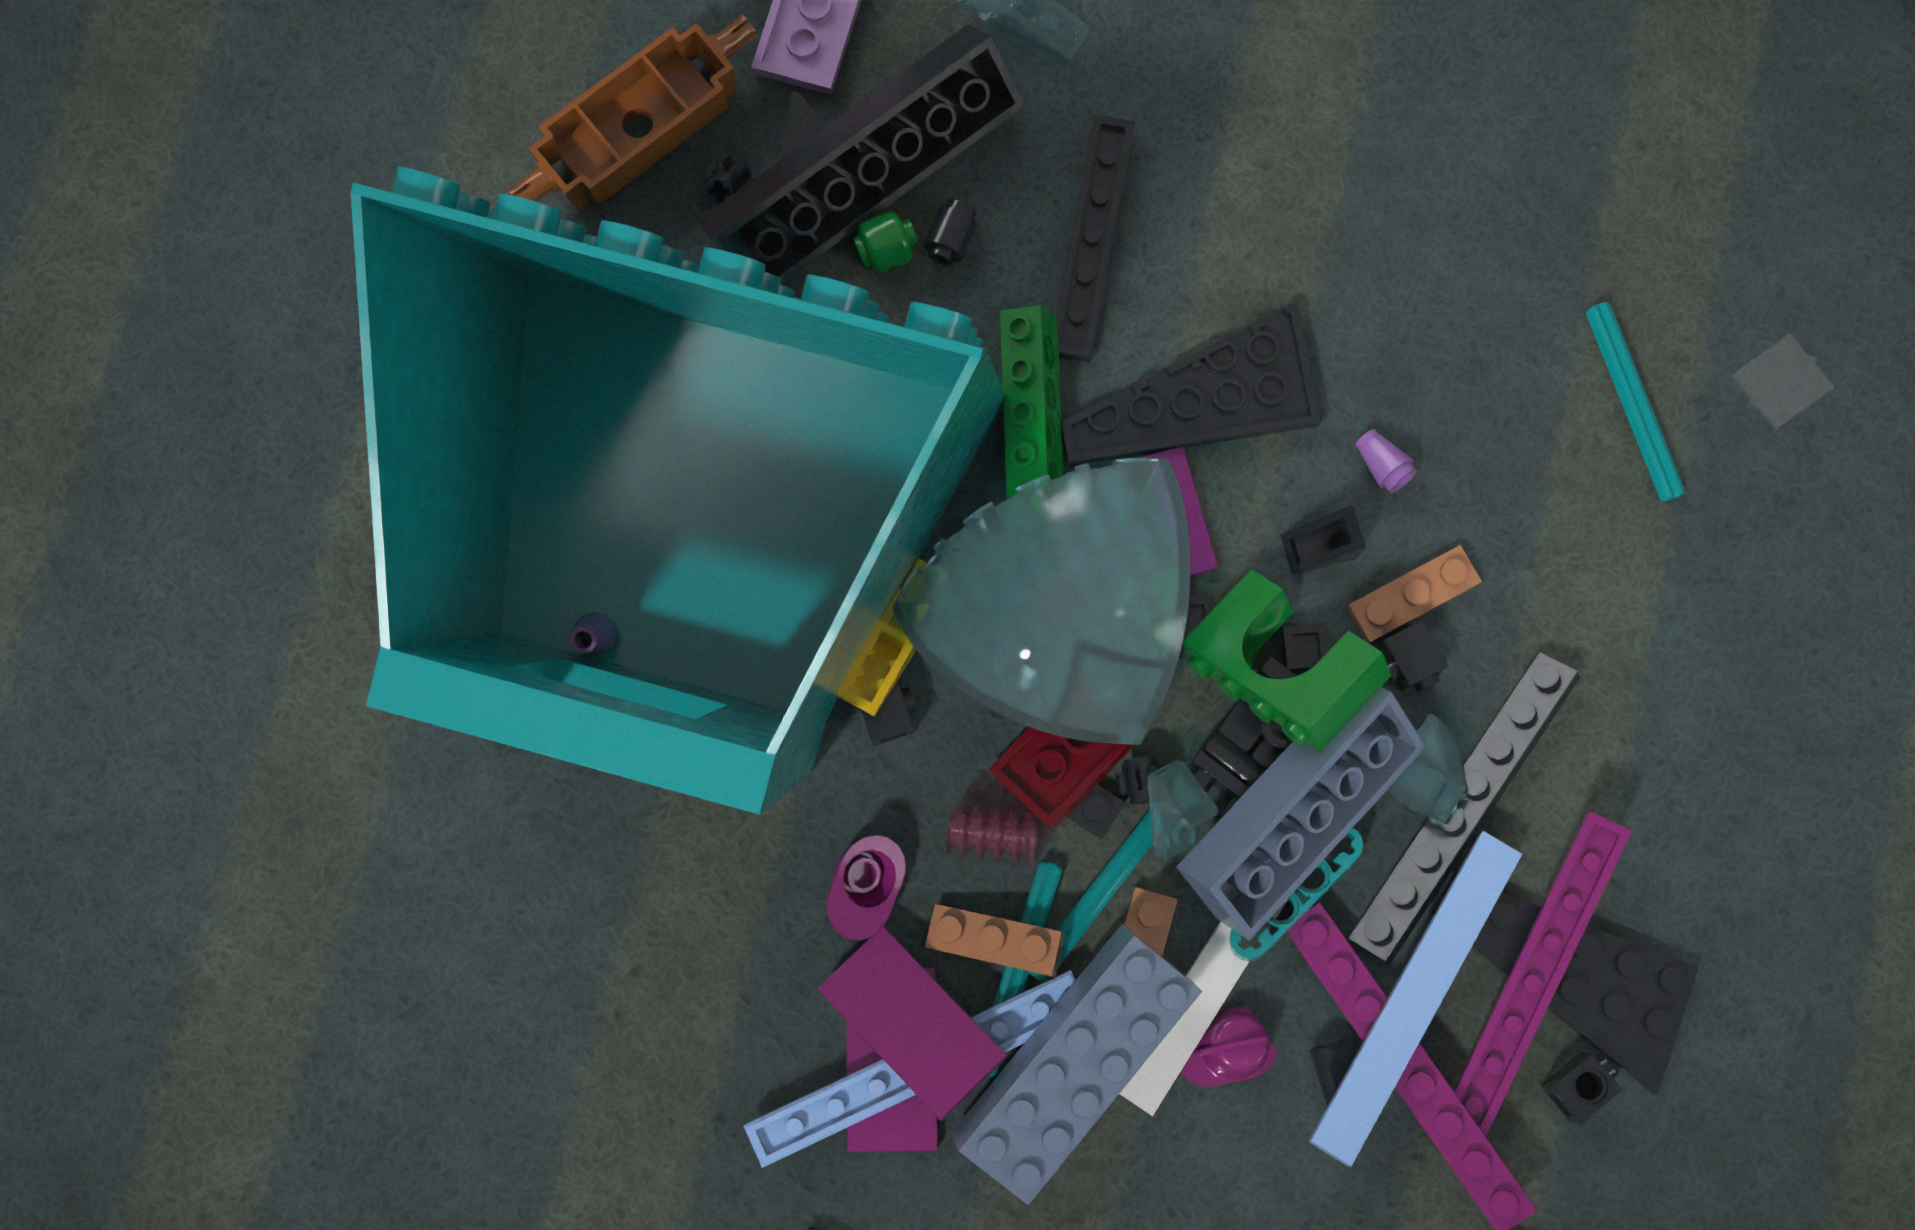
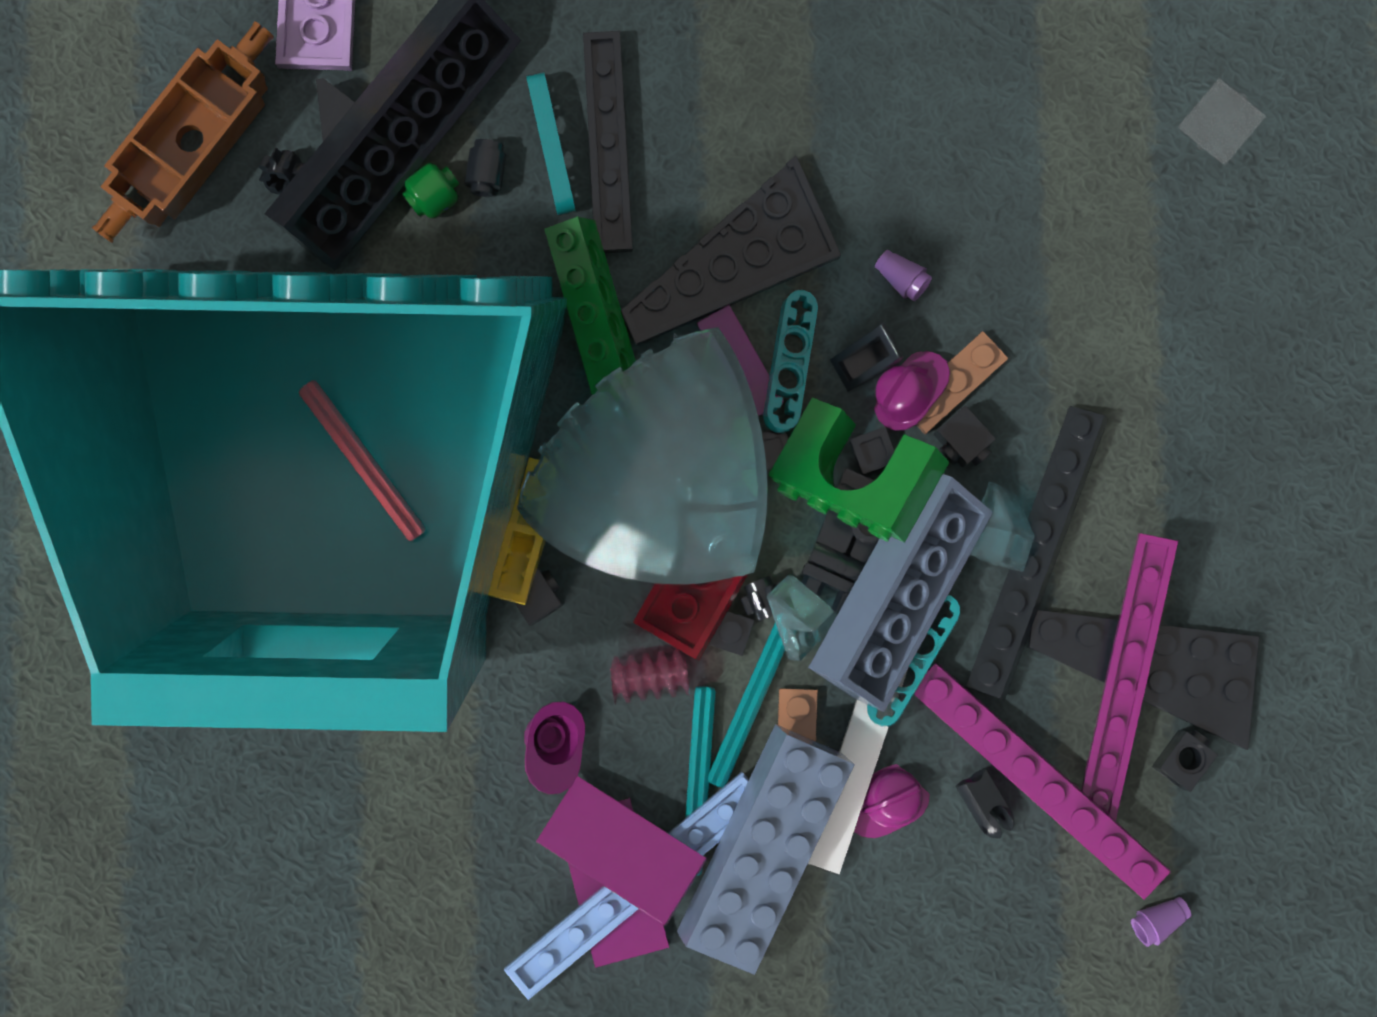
camera: 15 degrees left, 5 degrees up
(601, 631) = (272, 587): medium lavender cone -> none
(733, 514) = (361, 460): none -> coral axle
(995, 940) = (674, 763): nougat plate -> none
(1029, 224) = (550, 143): none -> teal beam
(1232, 522) = (794, 362): none -> teal beam
(1363, 589) = (910, 390): none -> magenta piece
(1414, 999) = (1031, 723): light blue tile -> none
(1635, 402) = (1102, 170): teal axle -> none

